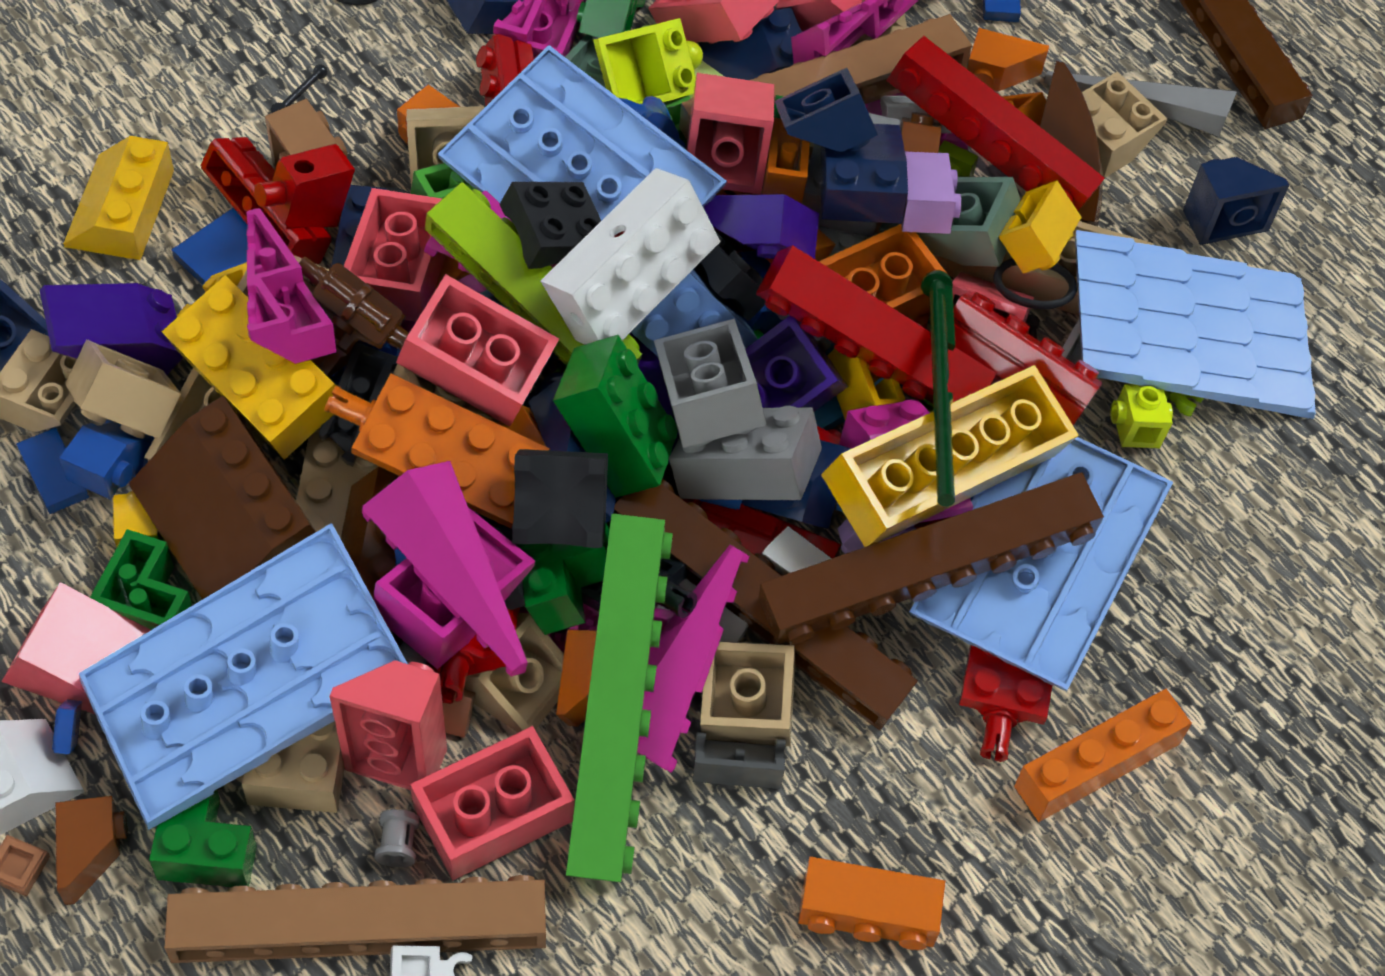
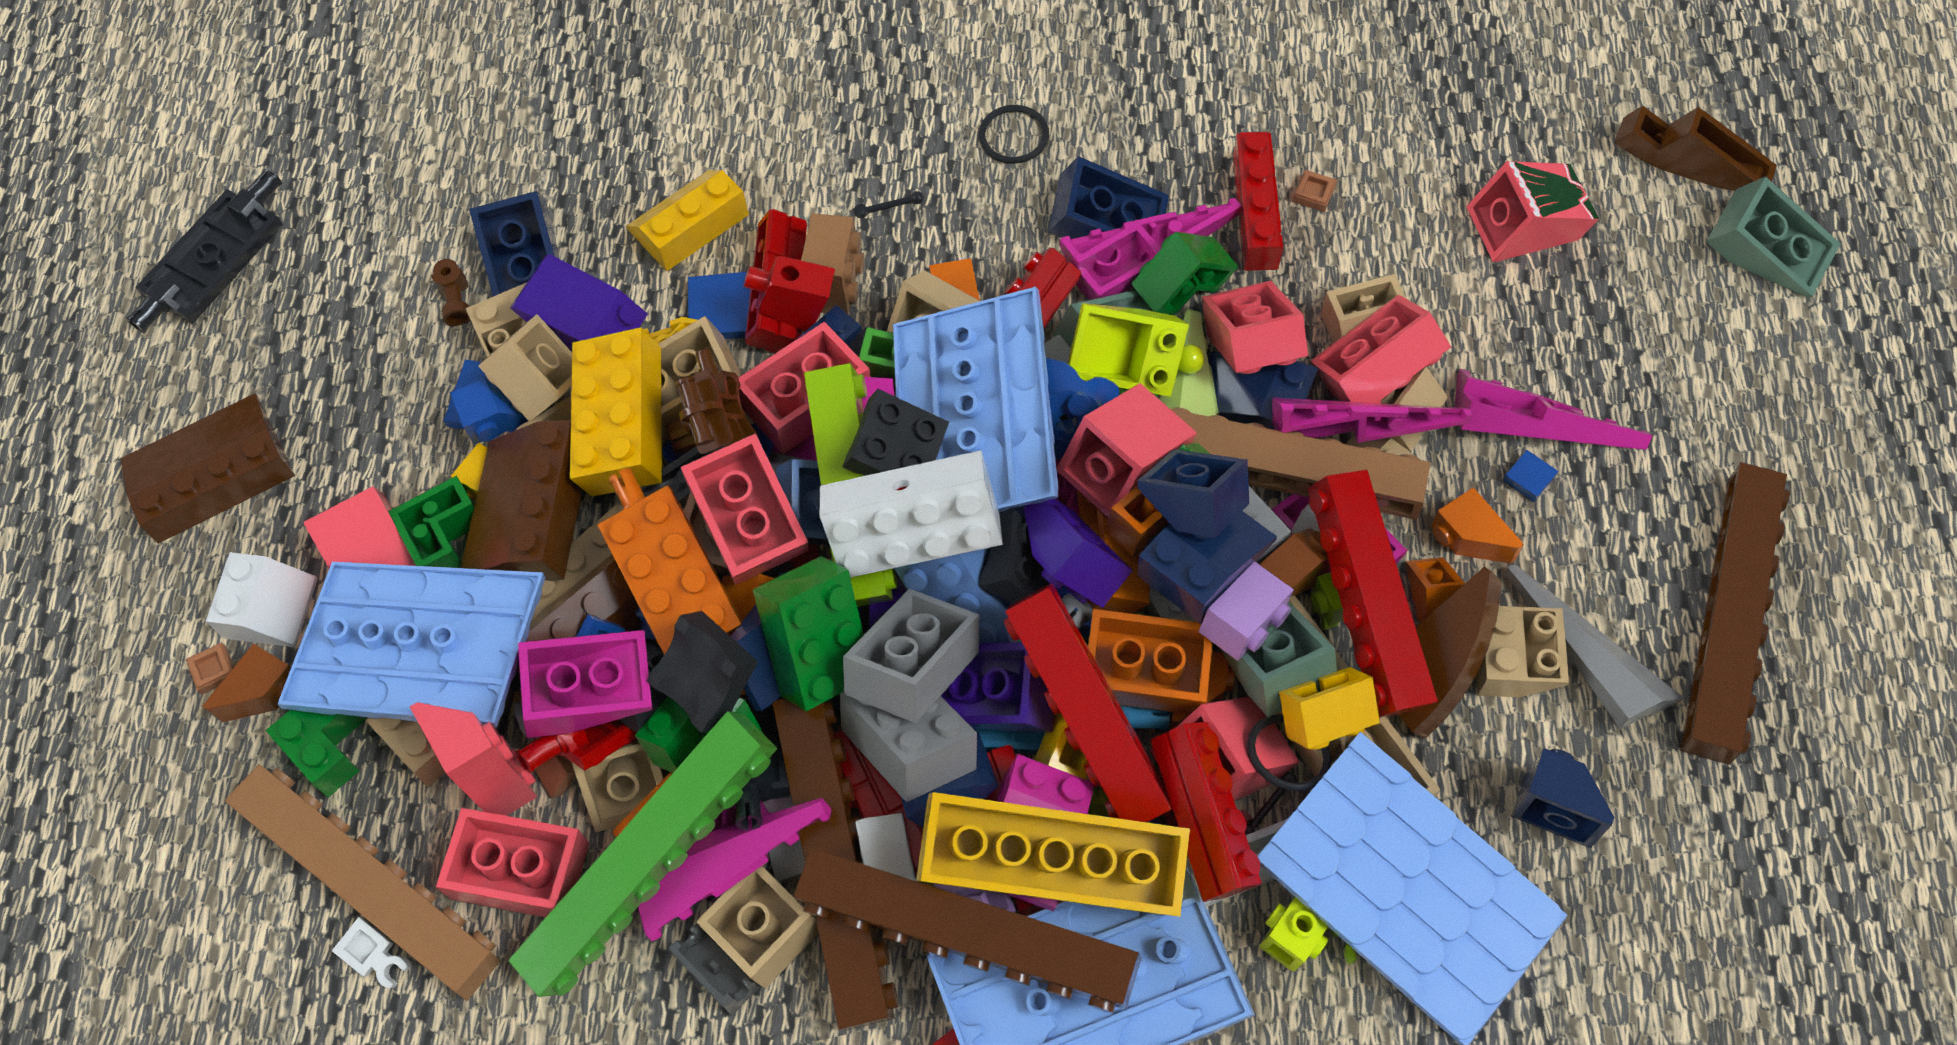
camera: 50 degrees right, 5 degrees up
(67, 726) = (306, 594): blue tile -> none
(279, 304) = (643, 387): dark pink wedge -> none
(397, 838) = (436, 839): light grey bush -> none
(433, 528) = (587, 629): dark pink wedge -> none
(938, 288) = (1180, 703): dark green bar -> none

